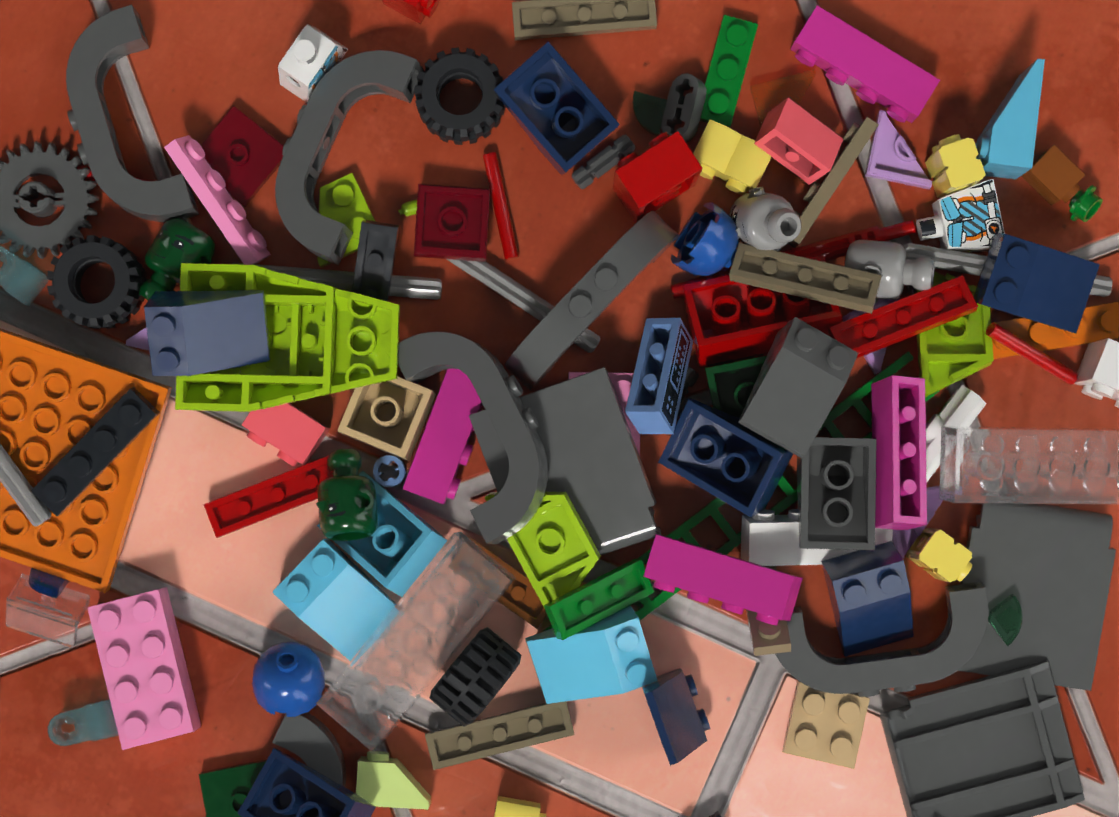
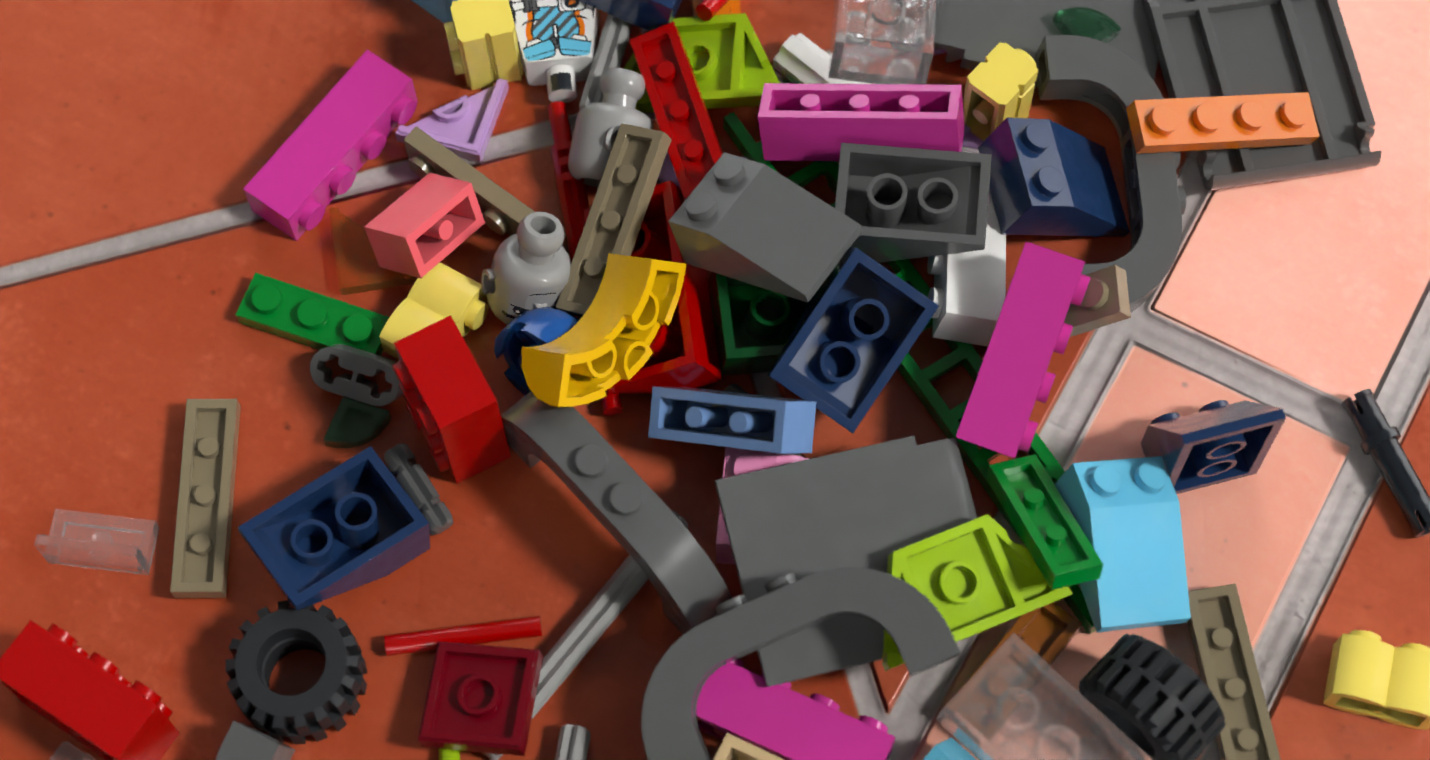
camera: 85 degrees left, 20 degrees down
(711, 283) = (610, 337): none -> yellow brick
(825, 726) = (1223, 262): tan plate -> none
(929, 723) = (1222, 122): none -> orange plate

